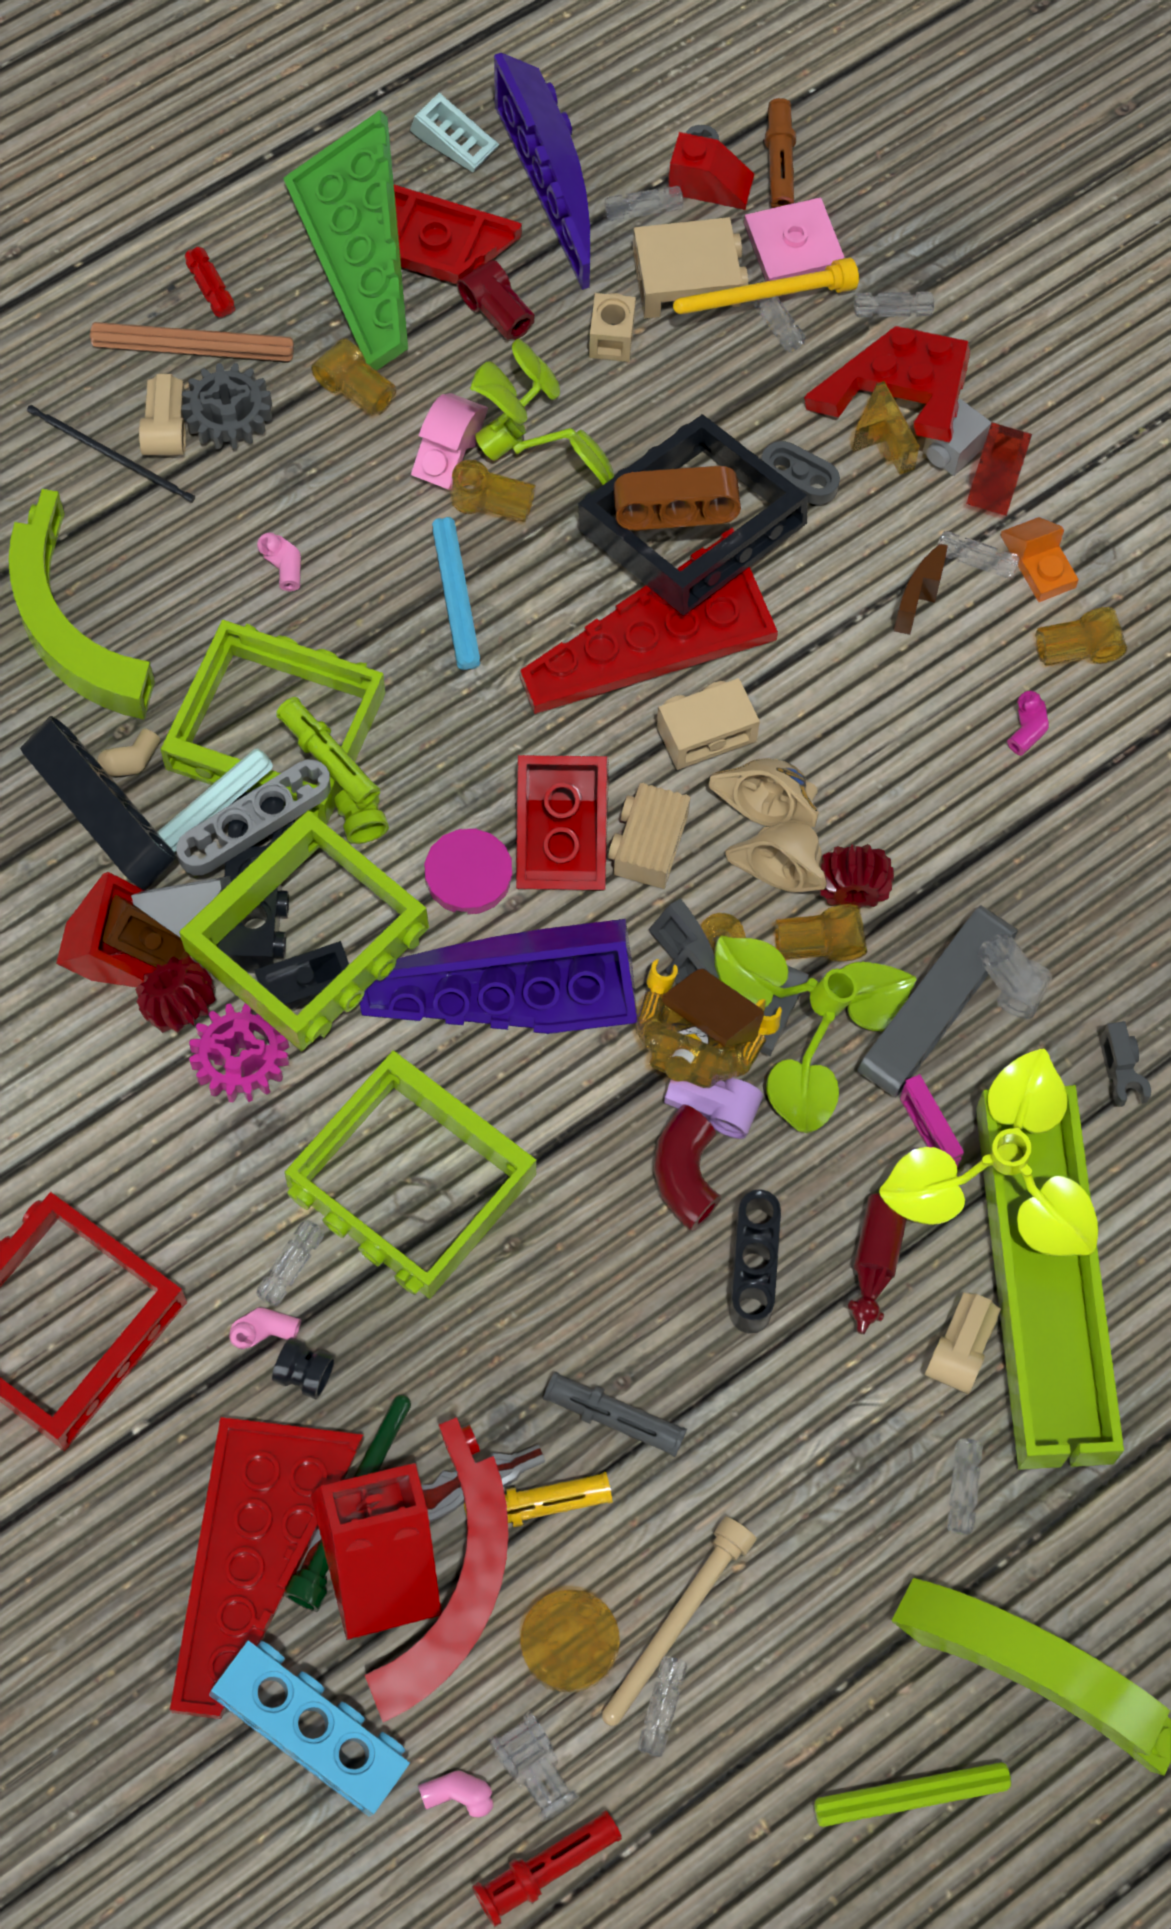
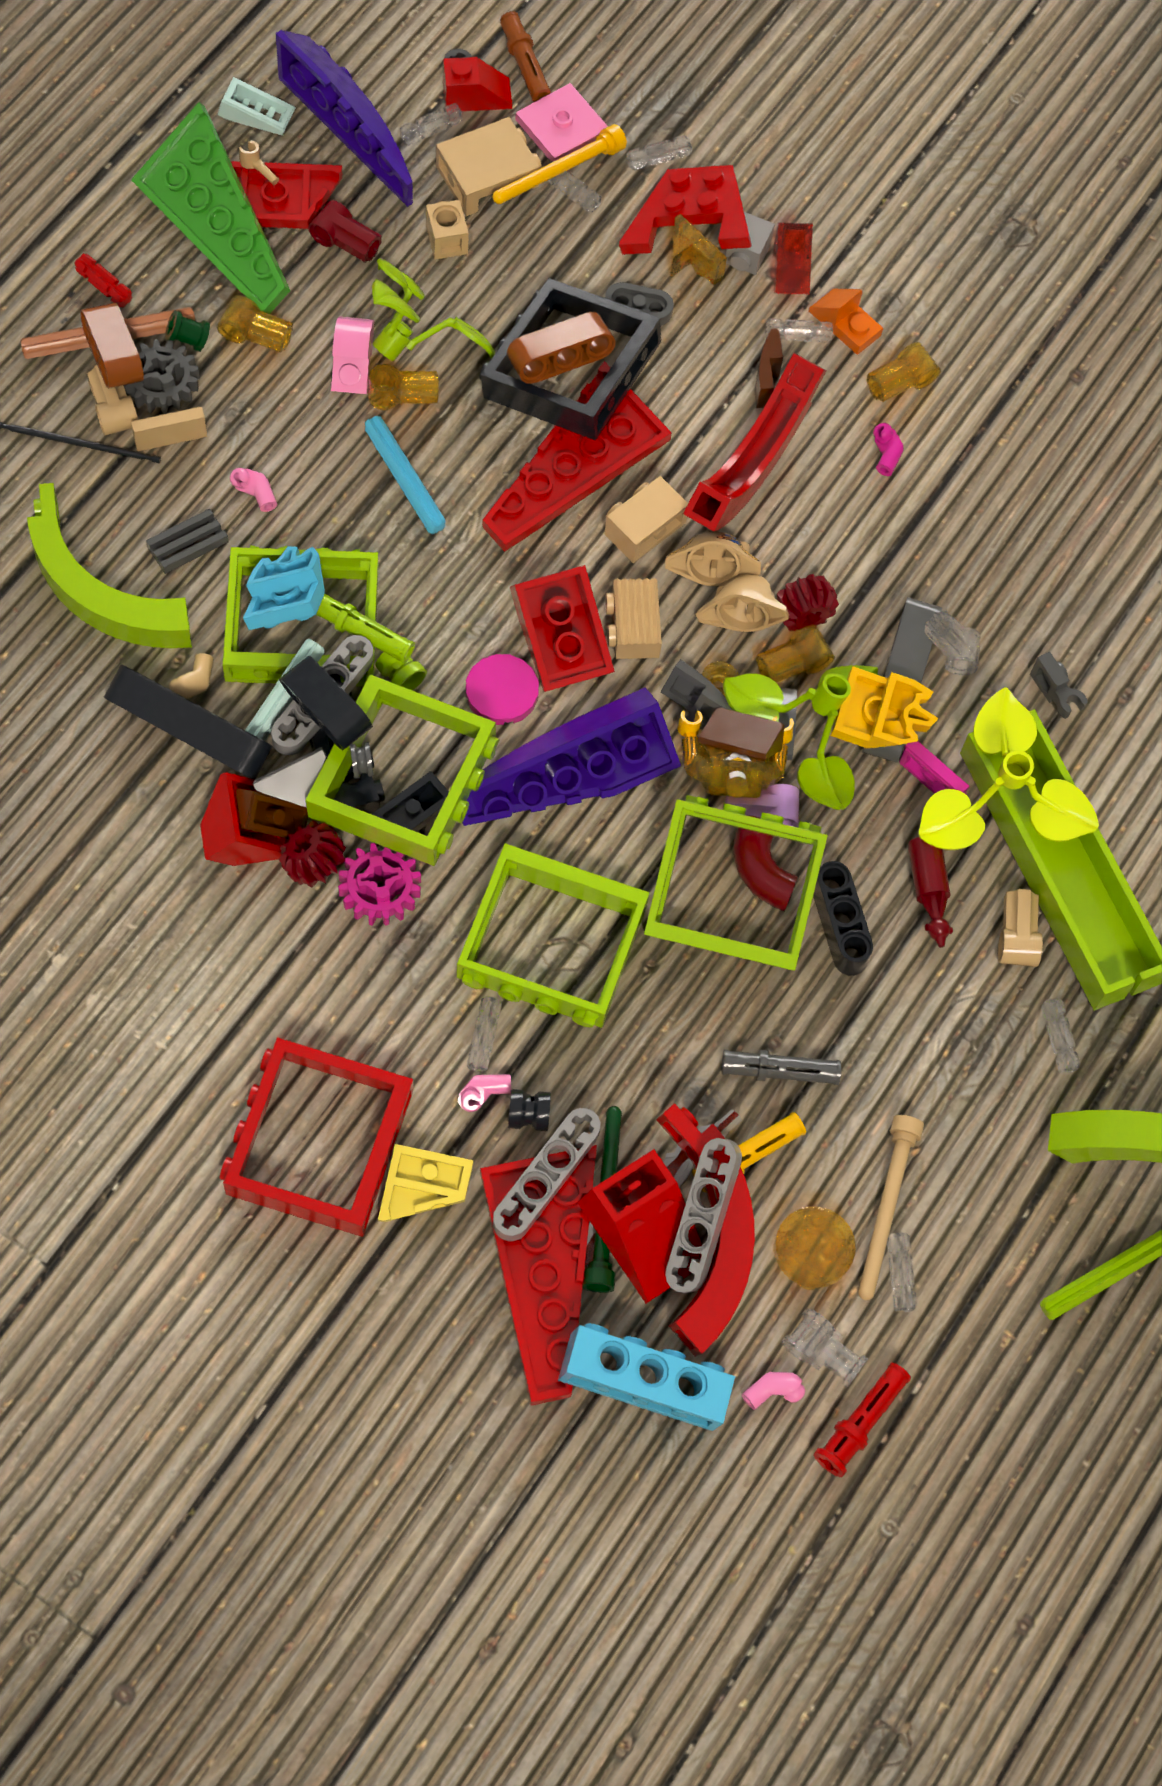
camera: 25 degrees left, 0 degrees up
(151, 1411) = (423, 1182): none -> light yellow wing
(180, 356) = (112, 345): none -> beam
(183, 592) = (185, 535): none -> dark grey tile
(212, 467) = (169, 428): none -> tan tile
(243, 828) = (326, 703): none -> black beam
(255, 905) = (361, 760): none -> dark grey bush
(256, 684) = (285, 589): none -> medium azure plate
(275, 363) = (187, 331): none -> dark green bush
(294, 1455) = (550, 1176): none -> light grey beam
(422, 192) = (252, 160): none -> tan hand
(436, 1555) = (710, 1218): none -> light grey beam
(534, 1206) = (735, 816): none -> lime window
(819, 717) = (736, 482): none -> red arch
(891, 1030) = (882, 710): none -> yellow plate

